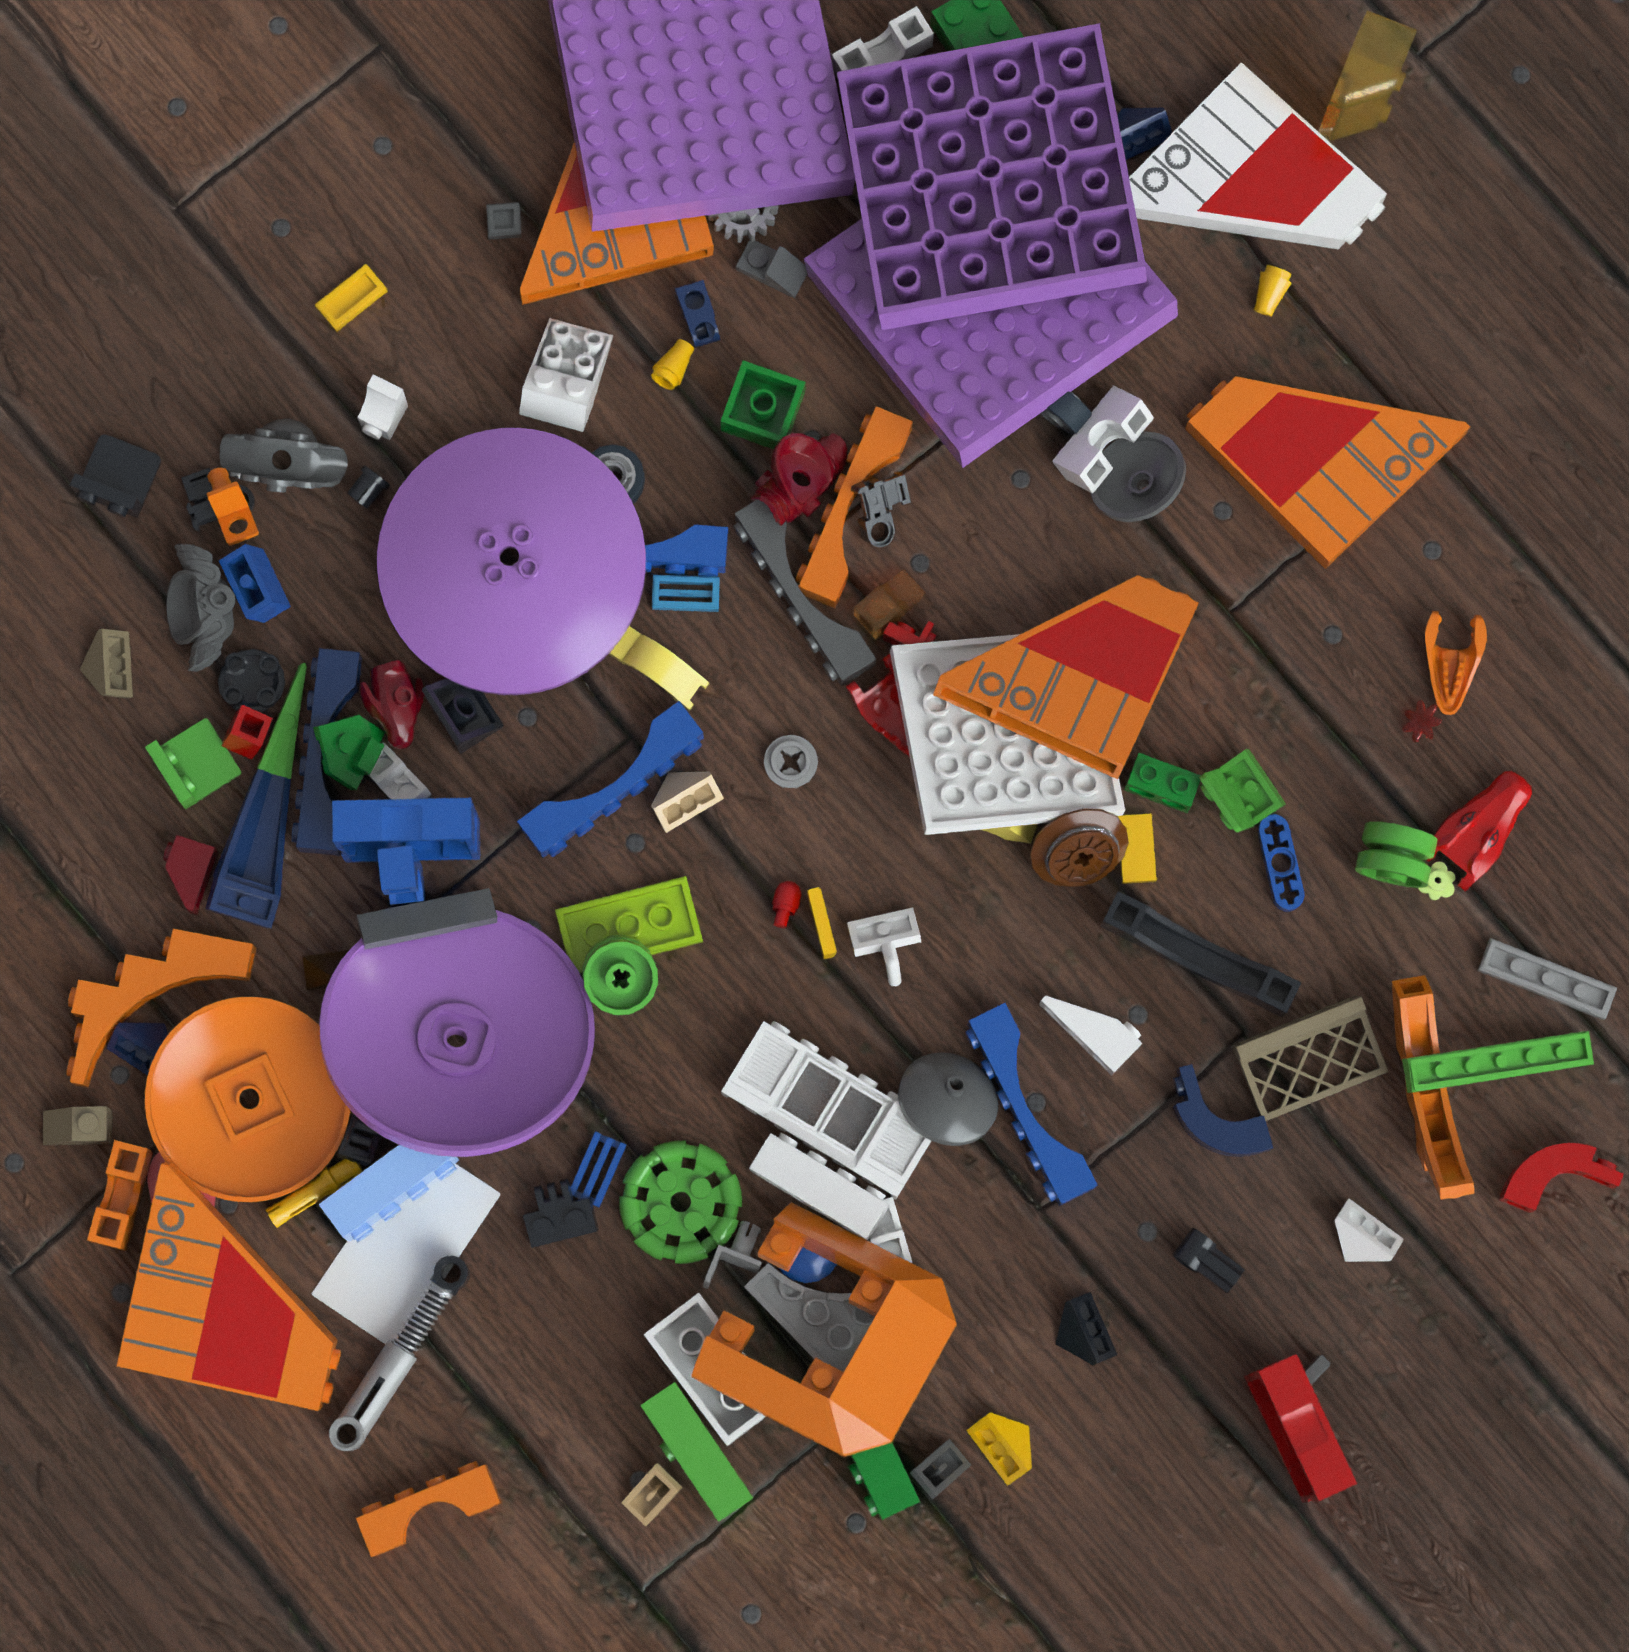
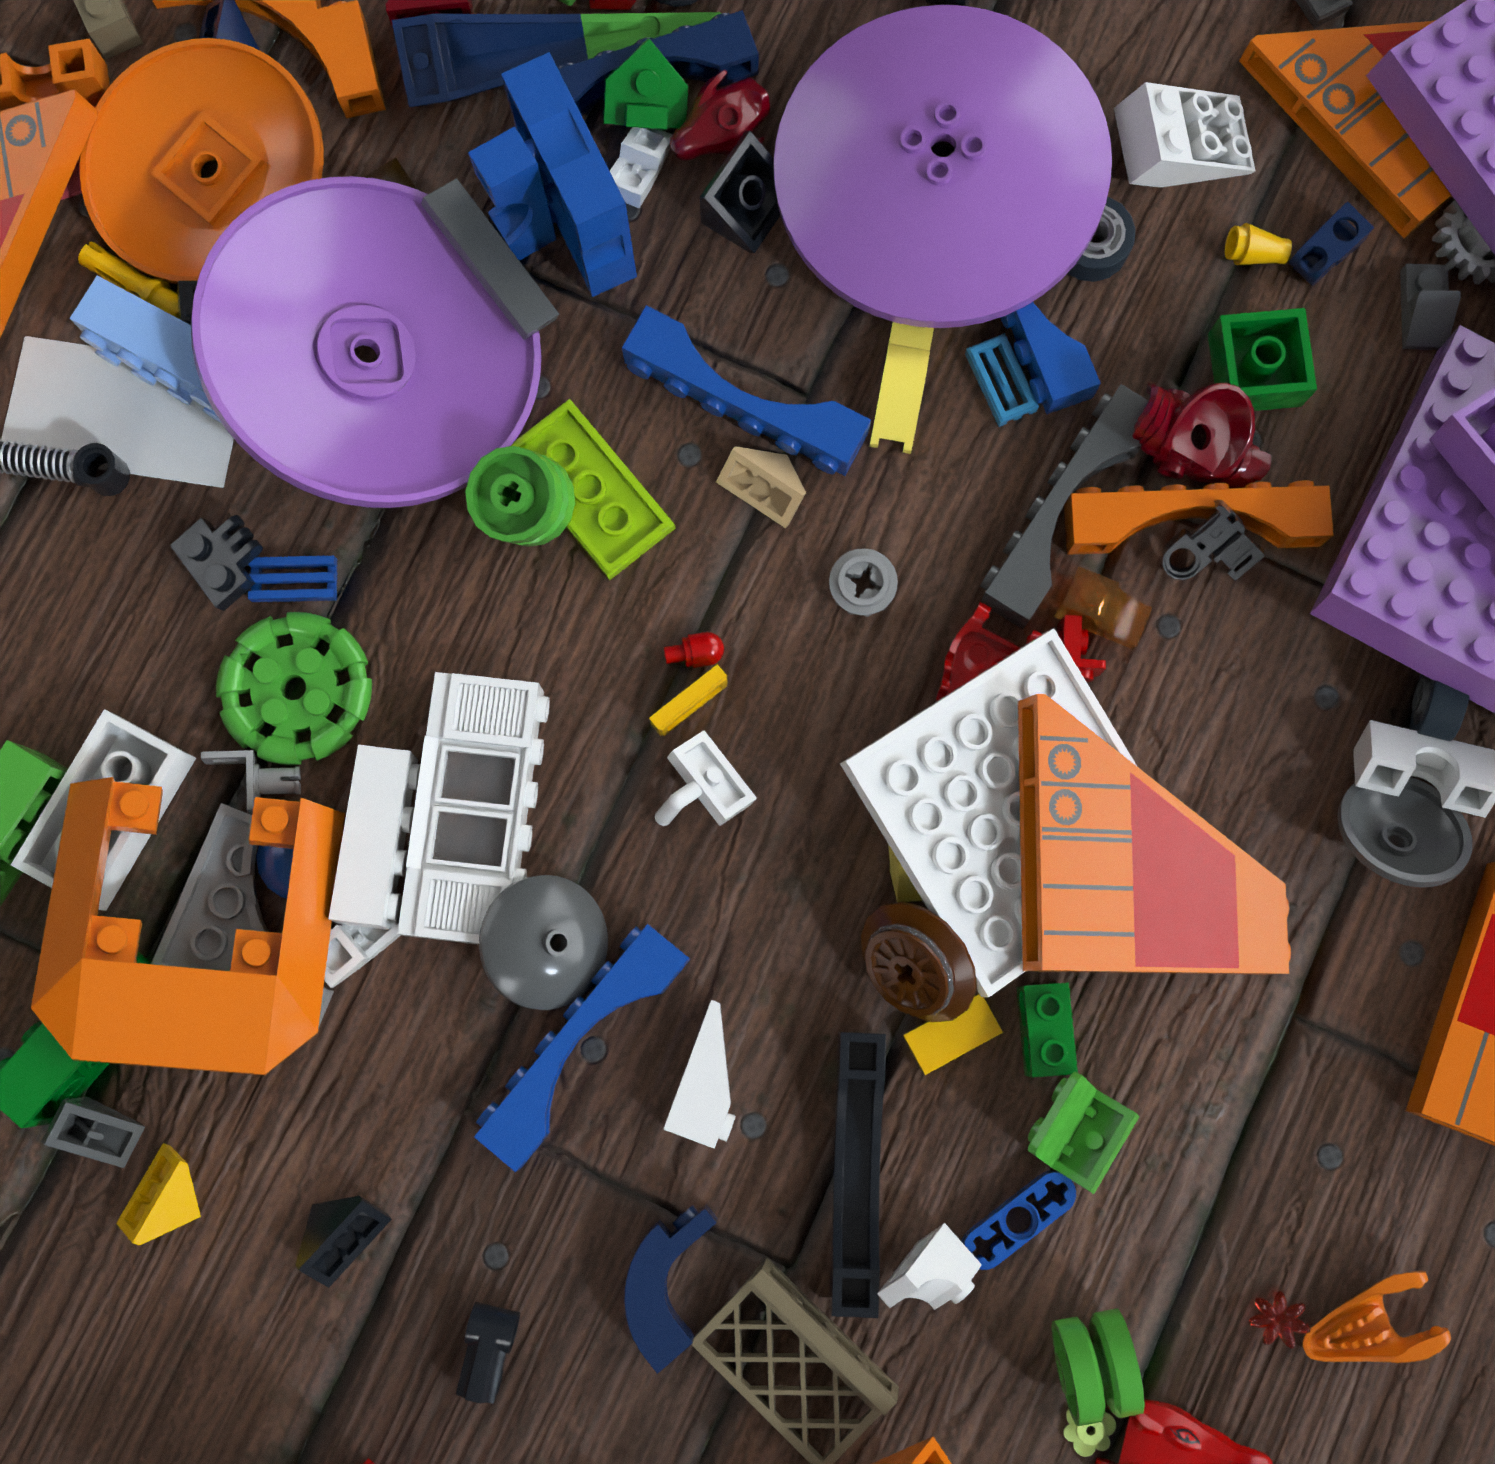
camera: 70 degrees right, 0 degrees up
(1288, 933) = (934, 1271): none -> white arch

